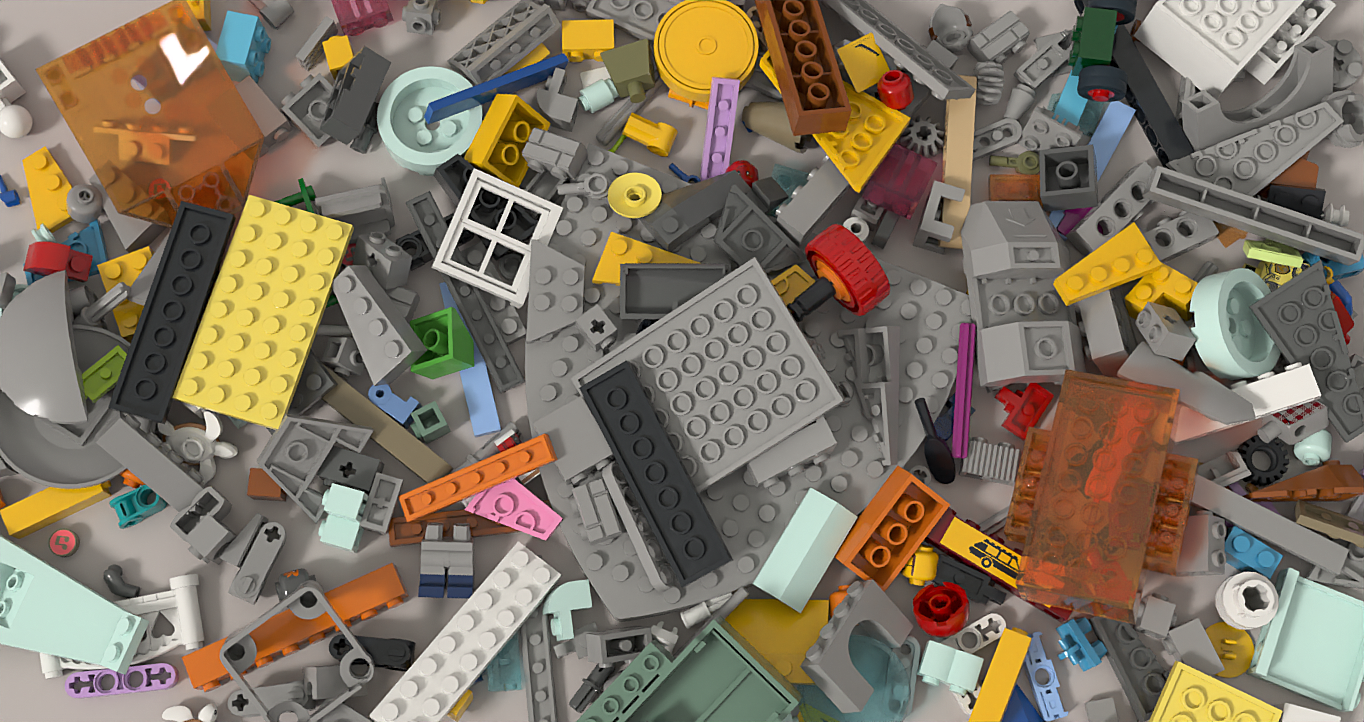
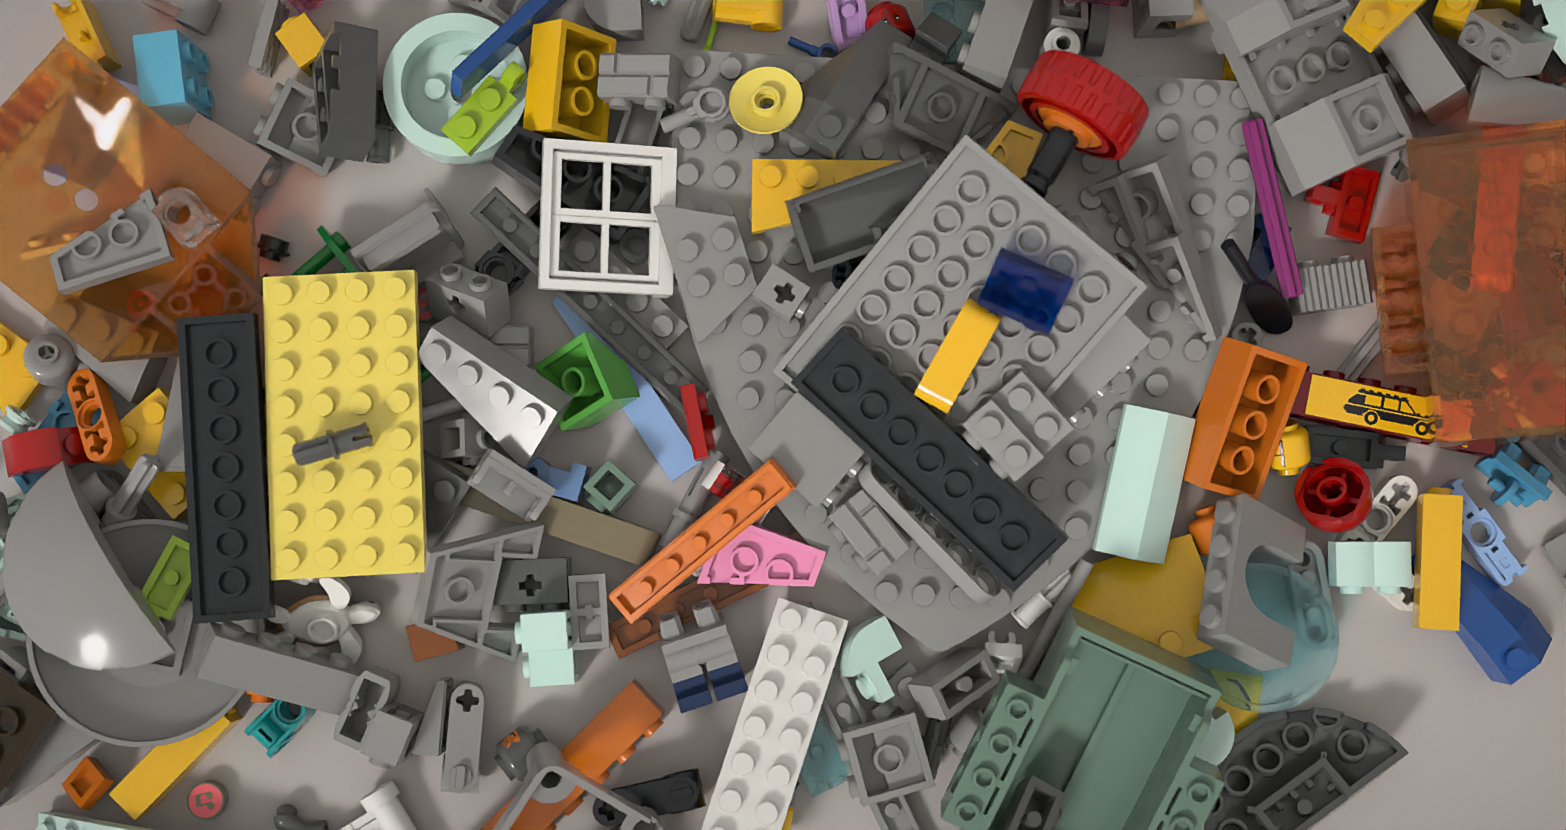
camera: 20 degrees left, 10 degrees up
(105, 258) = (107, 427): none -> orange beam
(163, 143) = (117, 248): none -> light grey wing
(221, 146) = (201, 219): none -> clear brick
(250, 319) = (331, 445): none -> dark grey axle
(263, 182) = (272, 247): none -> black plate
(360, 394) = (510, 485): none -> light grey hinge
(443, 138) = (485, 109): none -> lime plate
(507, 402) = (699, 425): none -> red hinge
(550, 681) = (885, 759): none -> light grey plate
(698, 405) = (957, 355): none -> yellow beam
(722, 469) = (1016, 426): none -> light grey plate
(757, 375) = (1025, 291): none -> clear blue bracket

